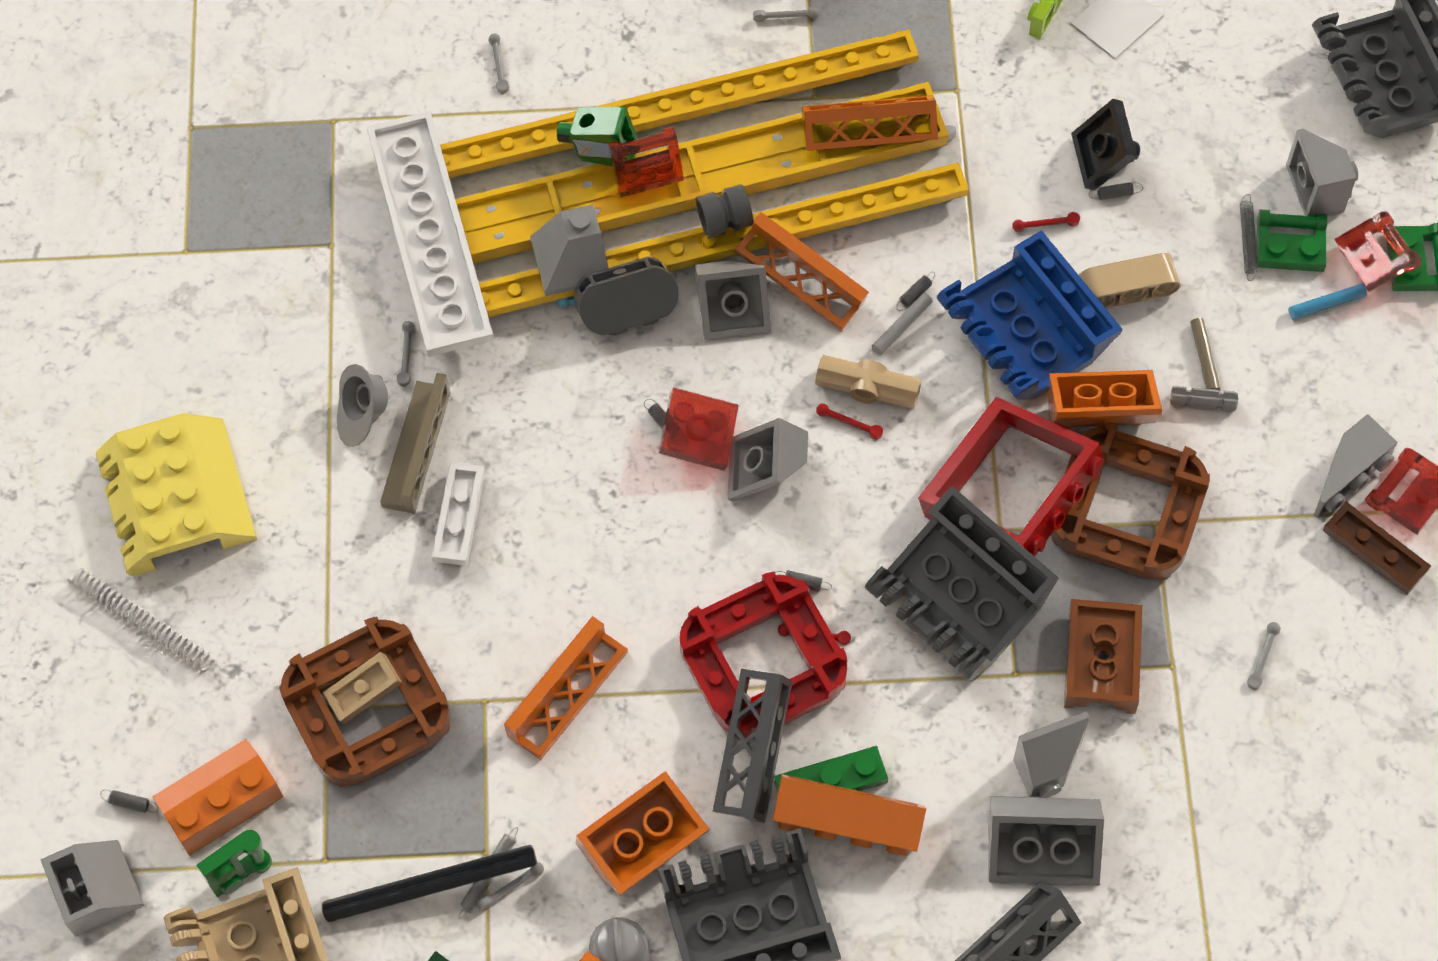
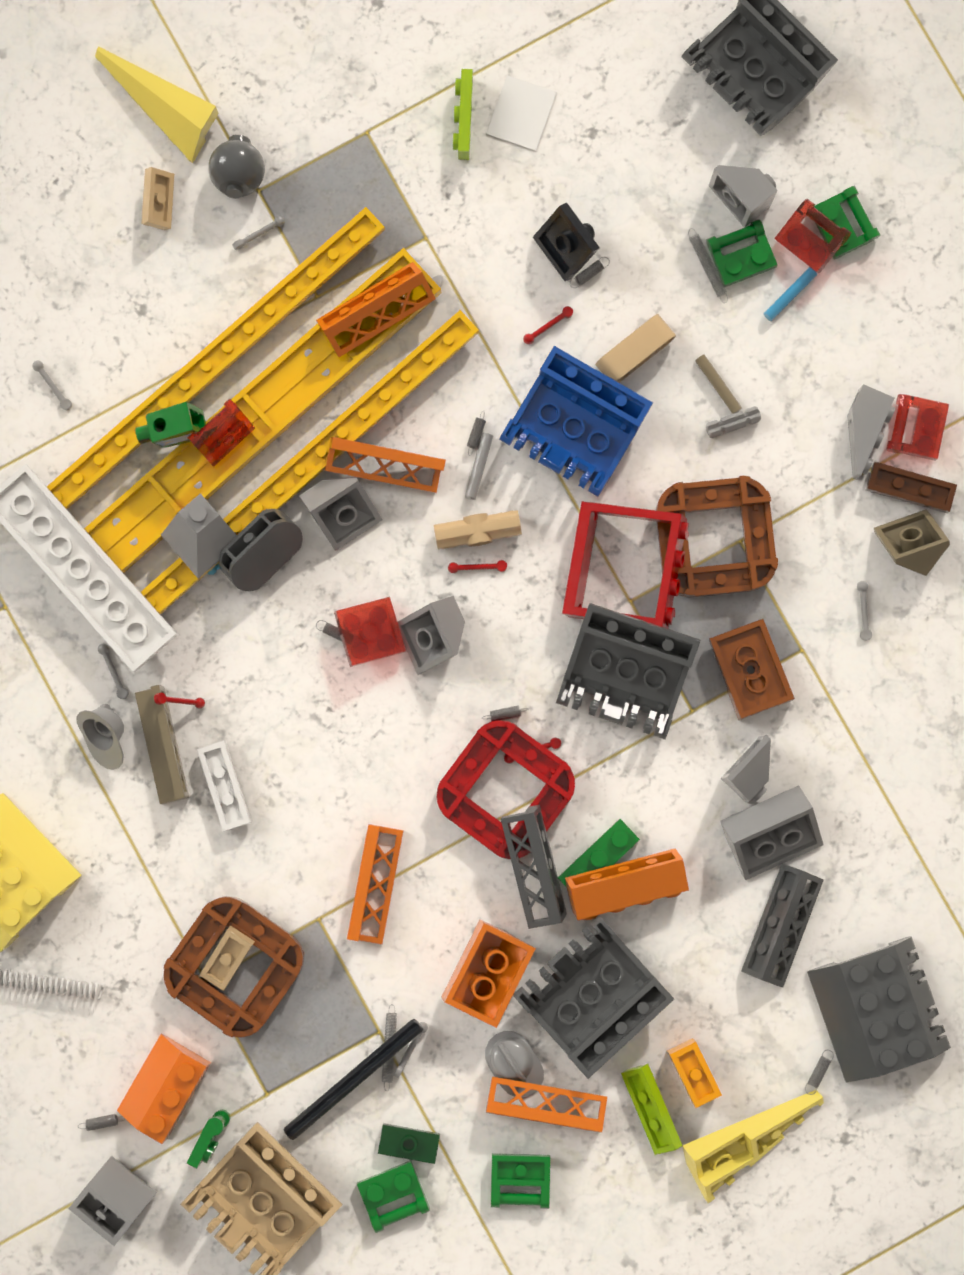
camera: 25 degrees left, 20 degrees up
(440, 386) = (161, 698): none -> red hinge
(724, 211) = (302, 445): dark grey wheel -> none
(1103, 398) = (663, 466): orange slope -> none
(1355, 603) = (914, 541): none -> dark tan slope

